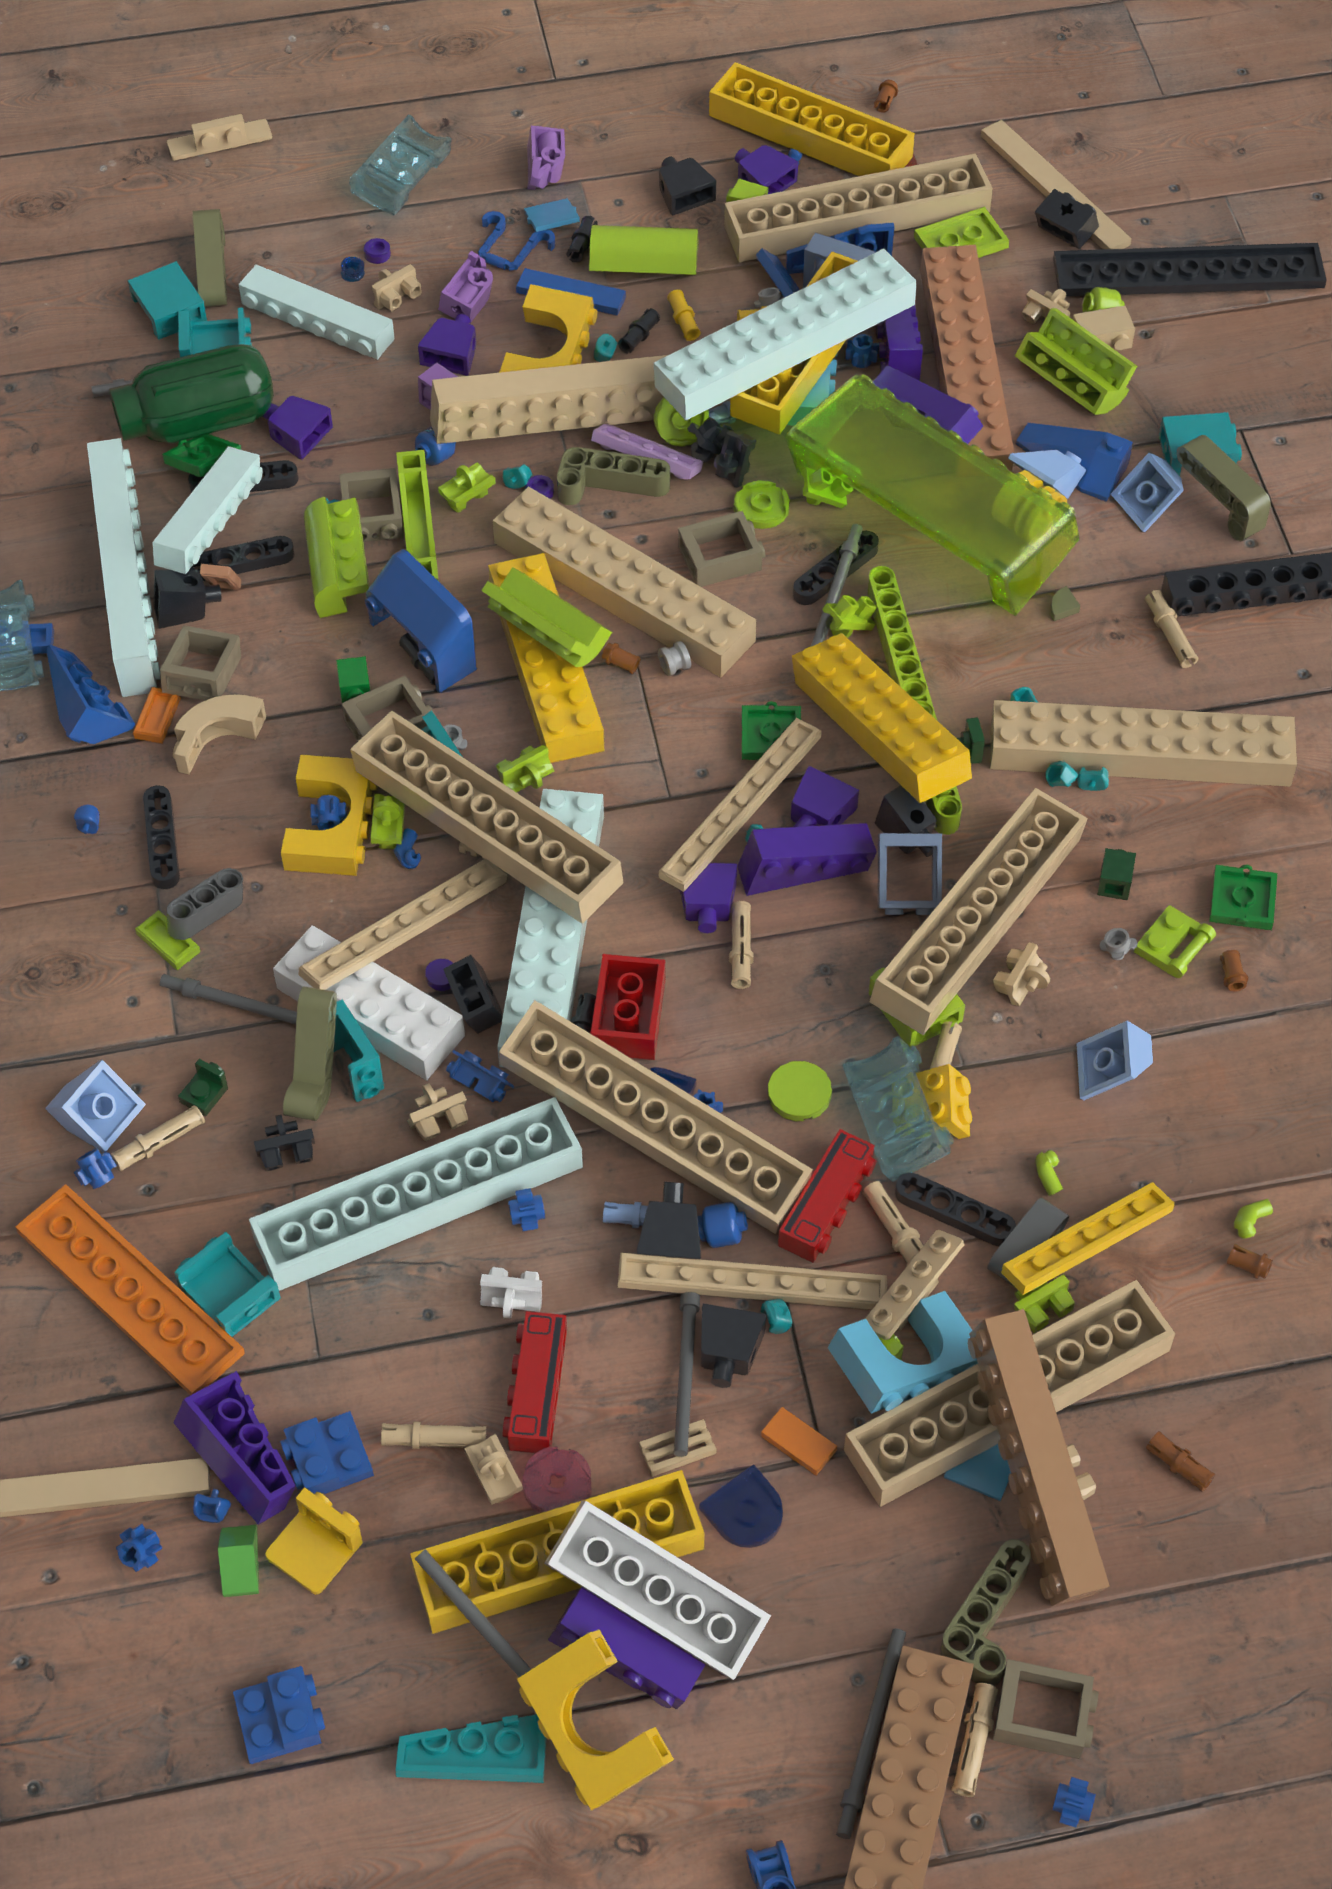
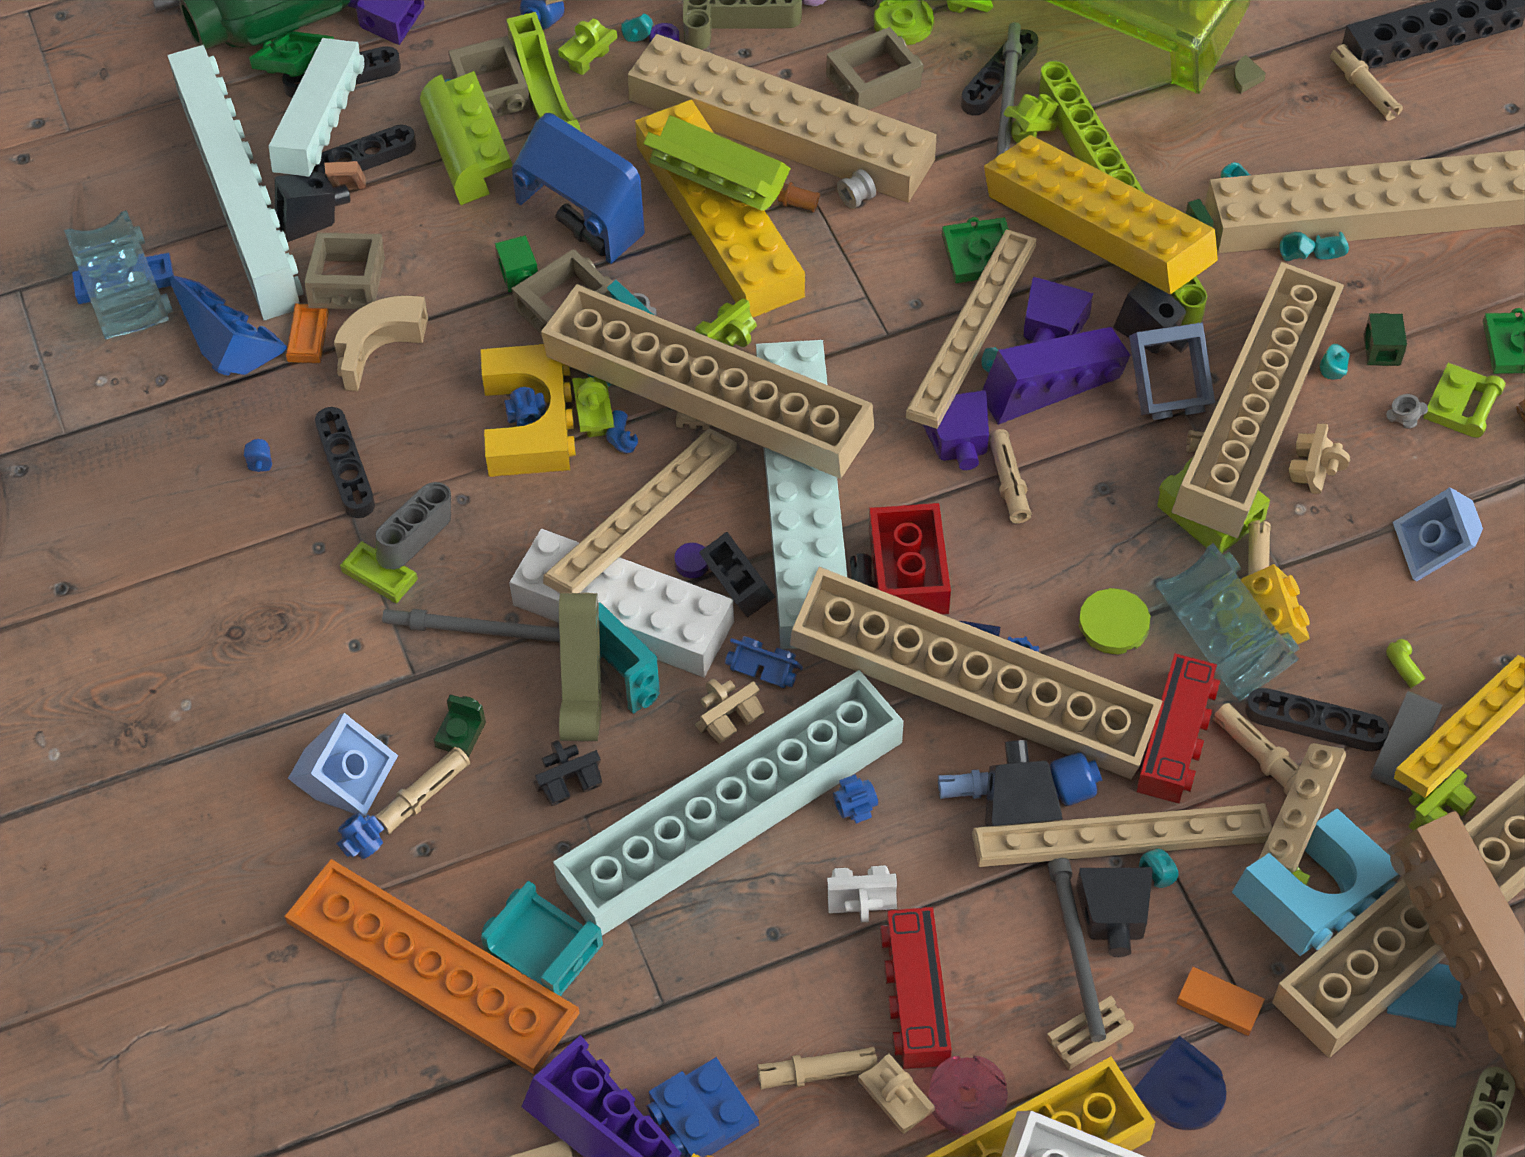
camera: 10 degrees left, 0 degrees up
(1066, 887) = (1334, 362): none -> teal piece

